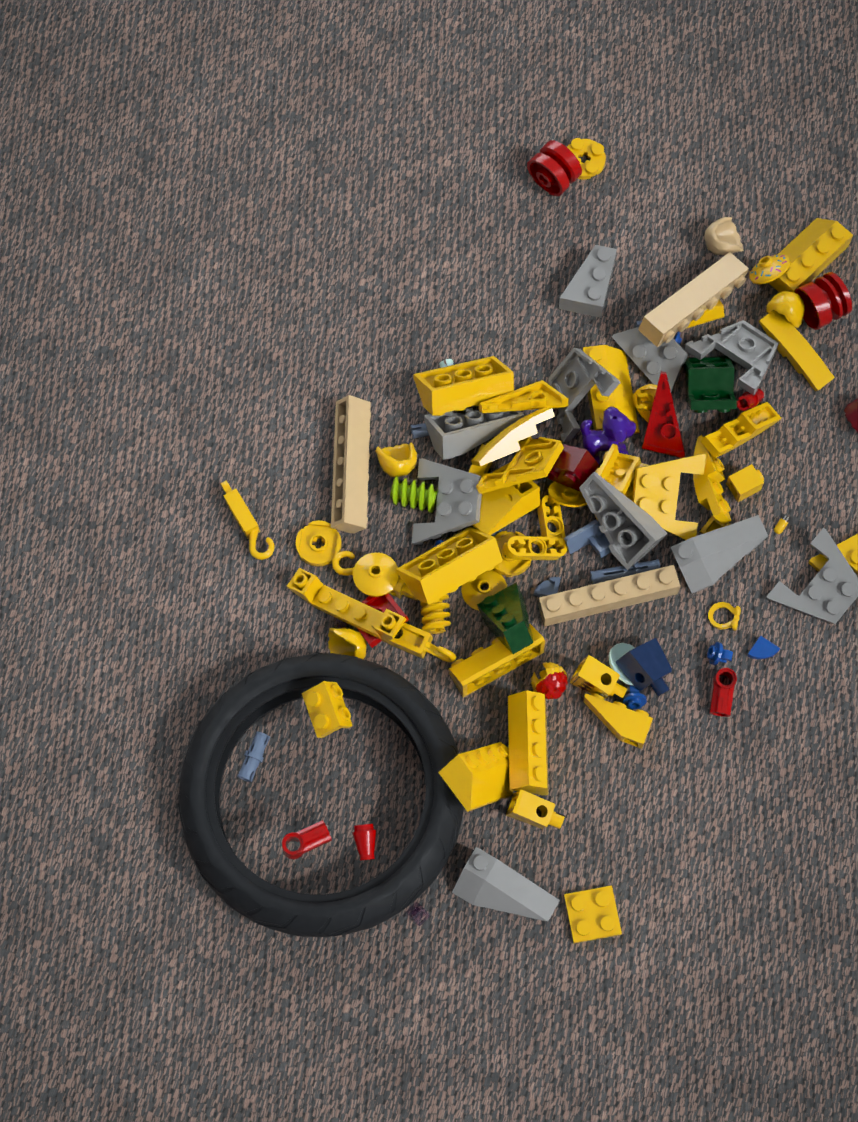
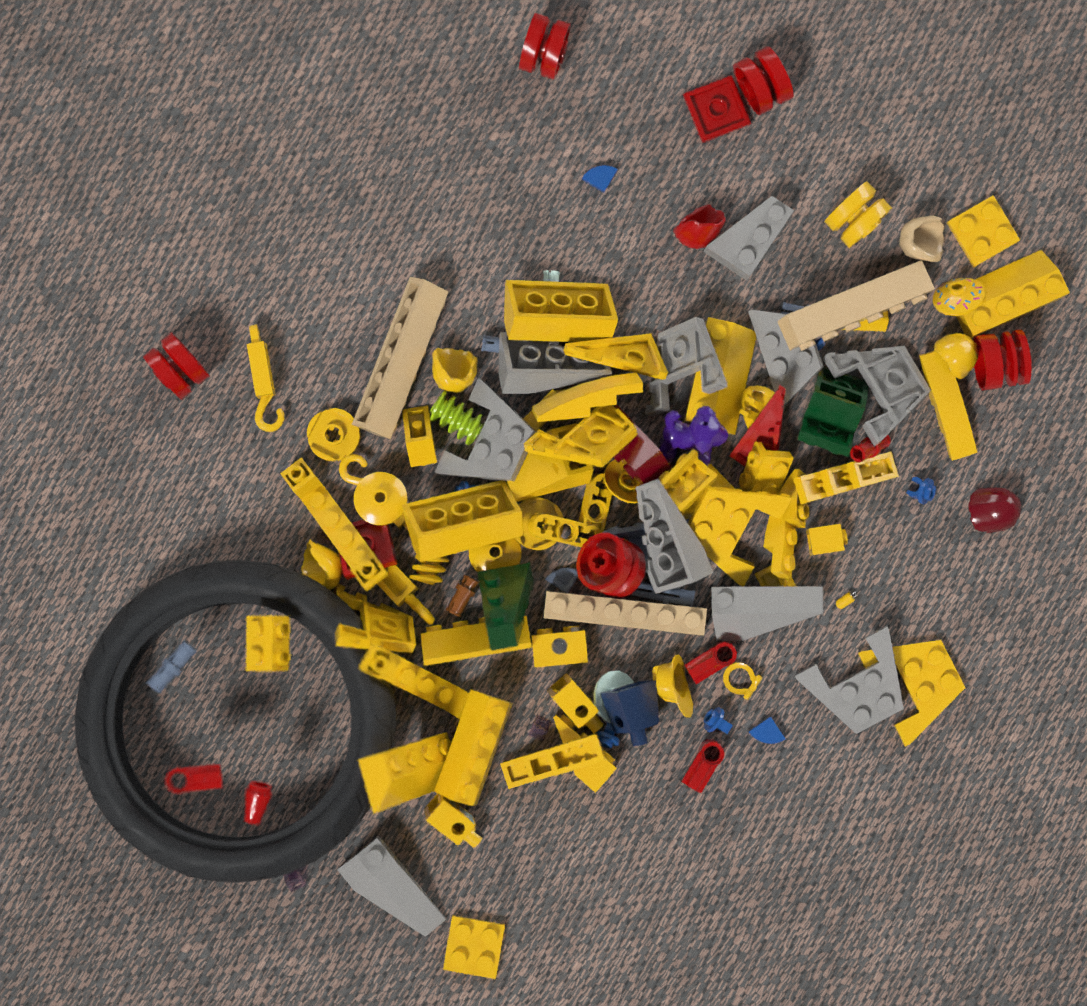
camera: 15 degrees right, 15 degrees up
(172, 531) = (175, 366): none -> red wheel
(377, 200) = (548, 47): none -> red wheel
(389, 520) = (419, 436): none -> yellow slope
(412, 673) = (381, 625): none -> yellow wing
(456, 282) = (600, 177): none -> blue tile
(458, 704) = (414, 679): none -> yellow slope
(471, 630) = (462, 595): none -> dark orange pin
(526, 204) = (717, 109): none -> red tile
(549, 289) = (700, 227): none -> red hair
(552, 681) = (524, 686): red piece -> none
(567, 641) = (559, 648): none -> yellow piece
(576, 715) = (539, 728): none -> piece
(582, 558) = (611, 565): none -> red wheel
(593, 151) = (820, 74): yellow plate -> none
(598, 730) = (552, 761): none -> yellow slope
(667, 236) = (858, 215): none -> yellow wheel
(669, 636) = (672, 684): none -> yellow piece
(675, 442) = (765, 470): none -> yellow bracket
(693, 610) = (708, 663): none -> red piece
(767, 220) = (983, 231): none -> yellow plate
(807, 420) = (925, 492): none -> blue plate

